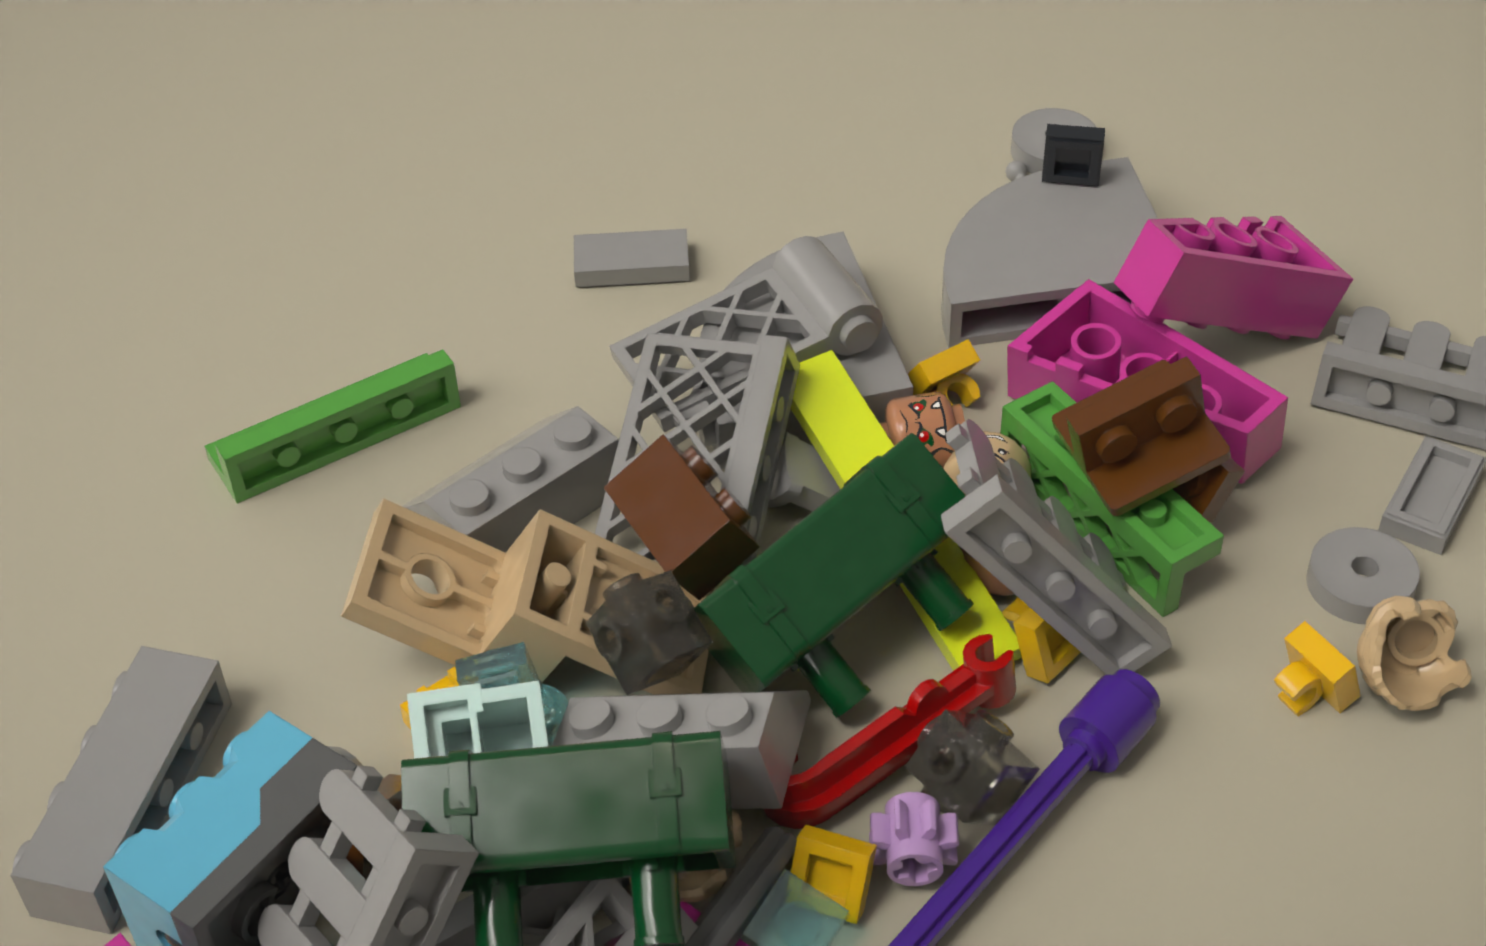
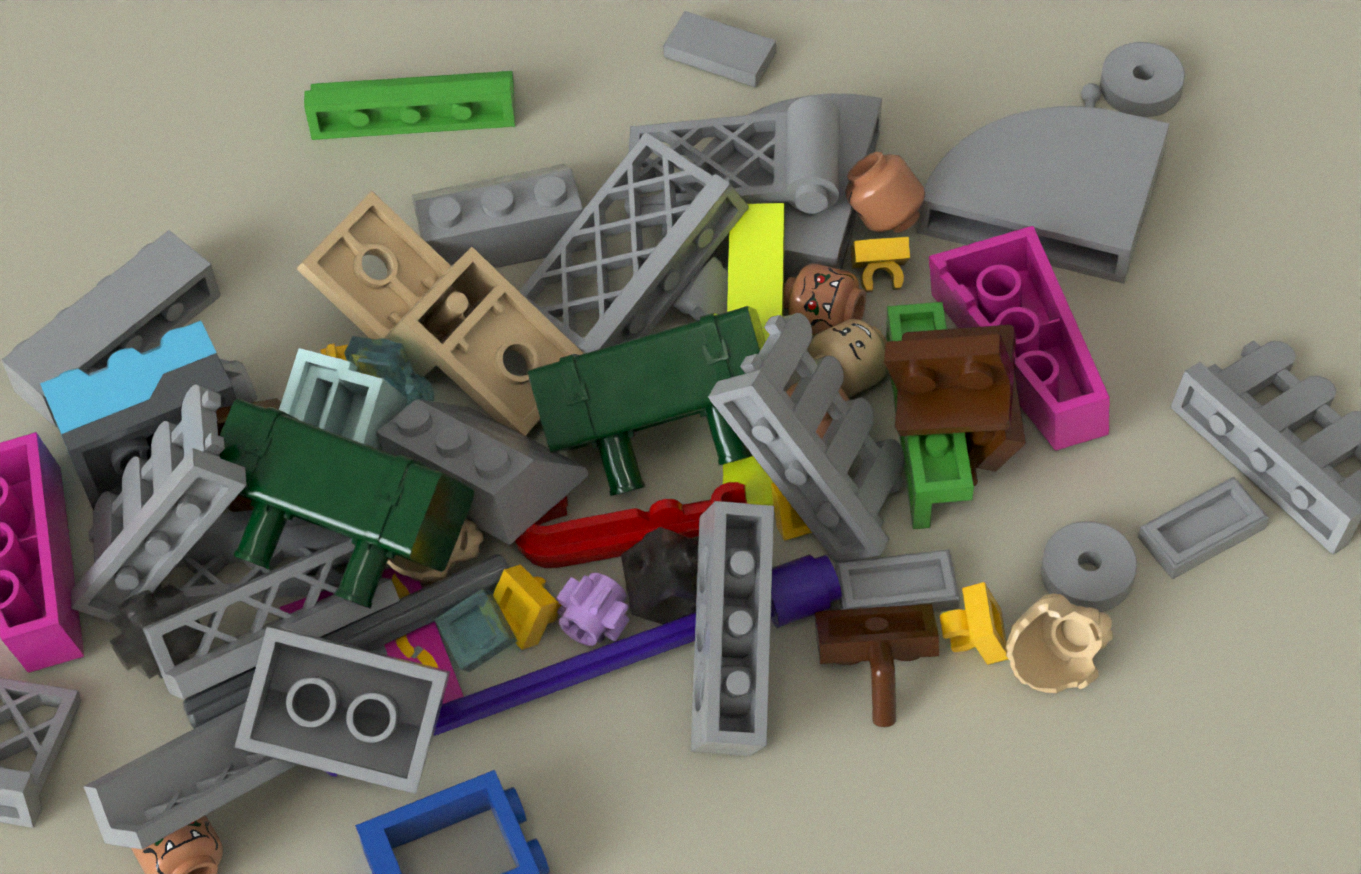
camera: 30 degrees right, 10 degrees up
(647, 630) = (490, 373): clear smoke brick -> none
(683, 516) = (577, 293): reddish brown brick -> none
(917, 308) = (884, 192): none -> nougat head
(1073, 154) = (1107, 106): black tile -> none
(1102, 782) = (732, 629): none -> light grey brick
(1203, 673) = (899, 581): none -> light grey tile
(1232, 276) = (1154, 272): dark pink wedge -> none
(1234, 724) = (878, 637): none -> reddish brown plate

